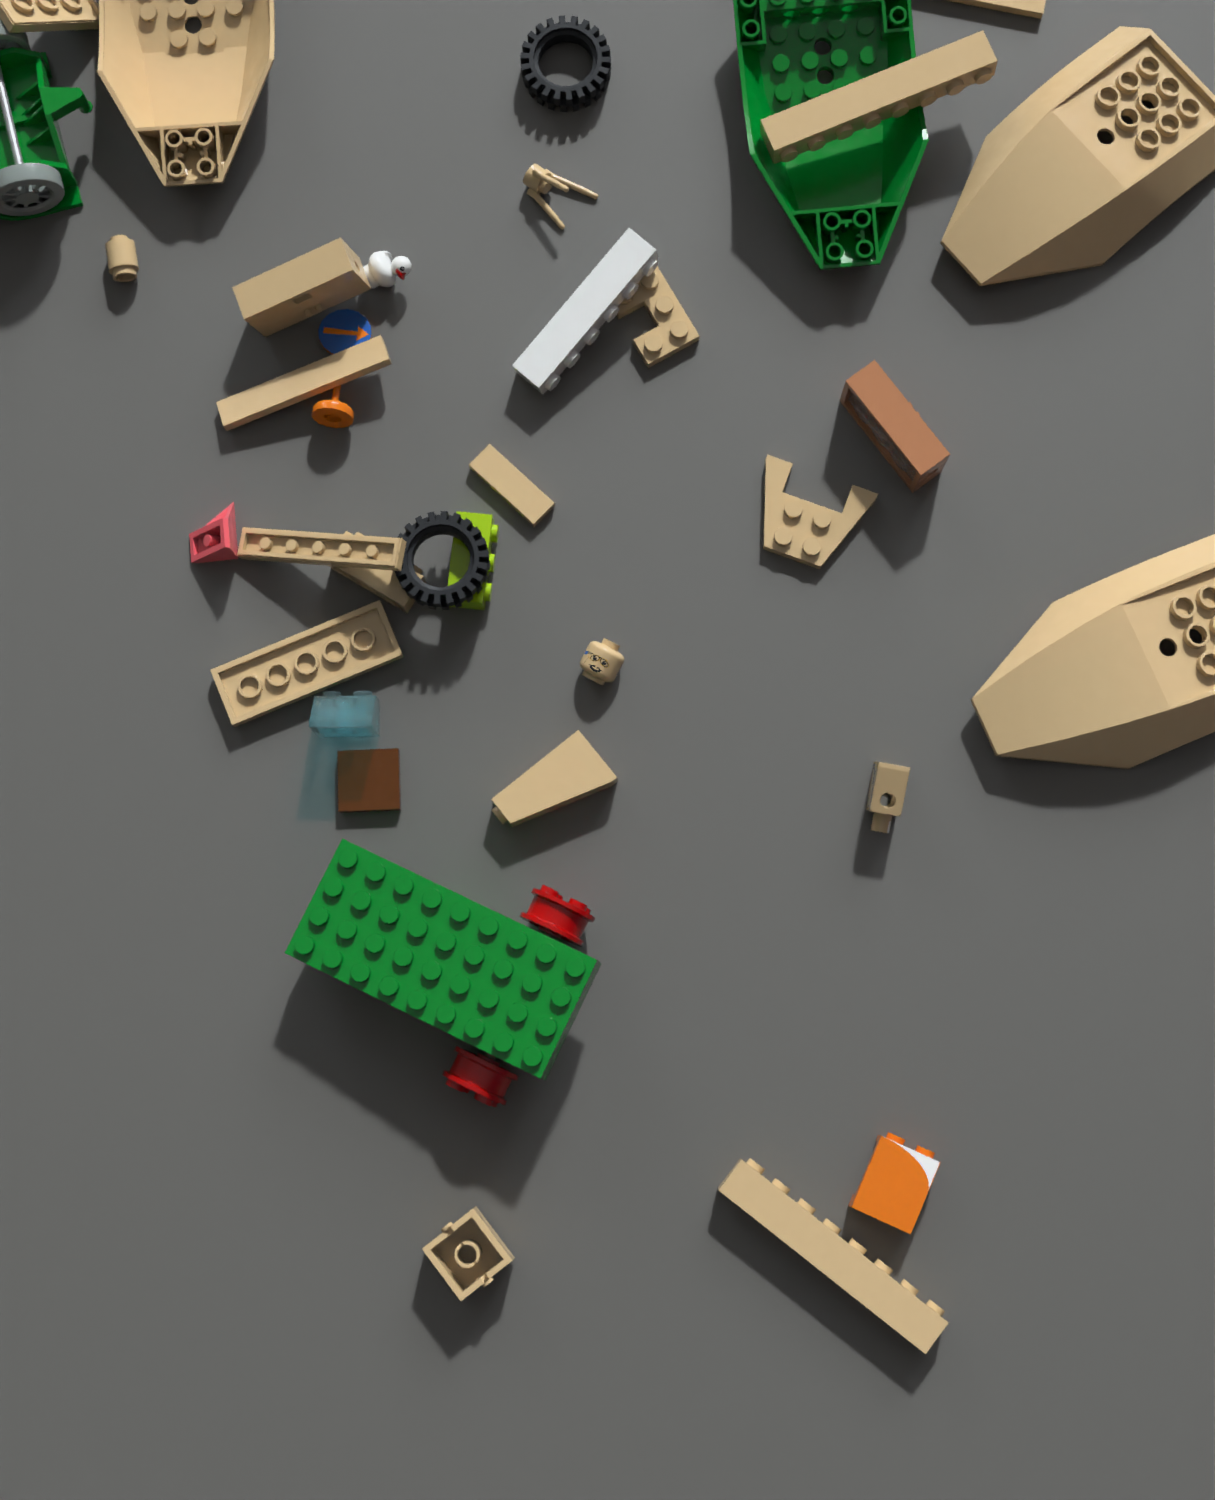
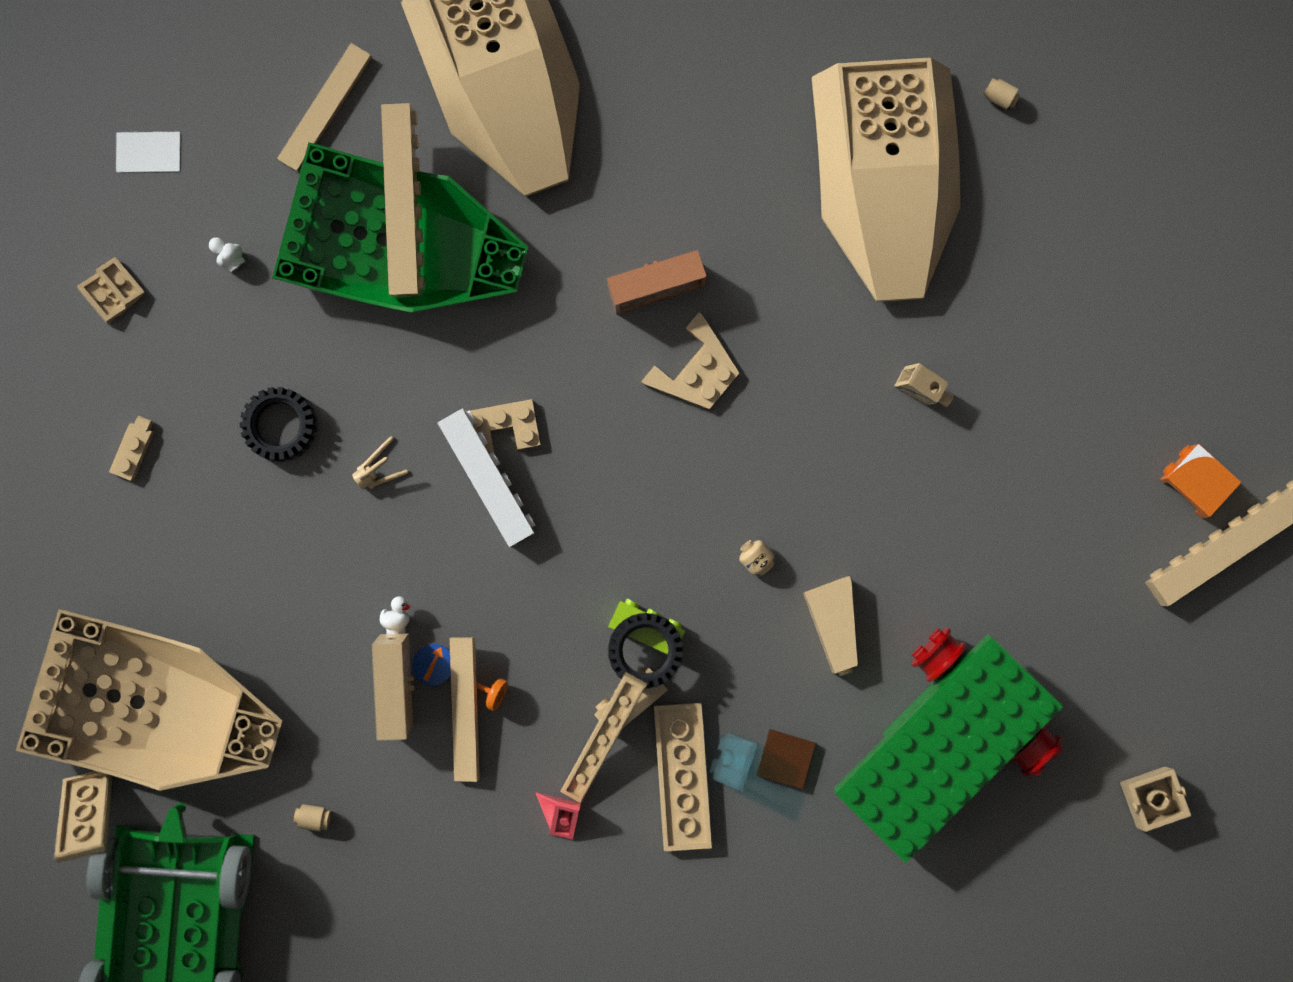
camera: 75 degrees left, 5 degrees up
(512, 485) = (597, 578): tan tile -> none

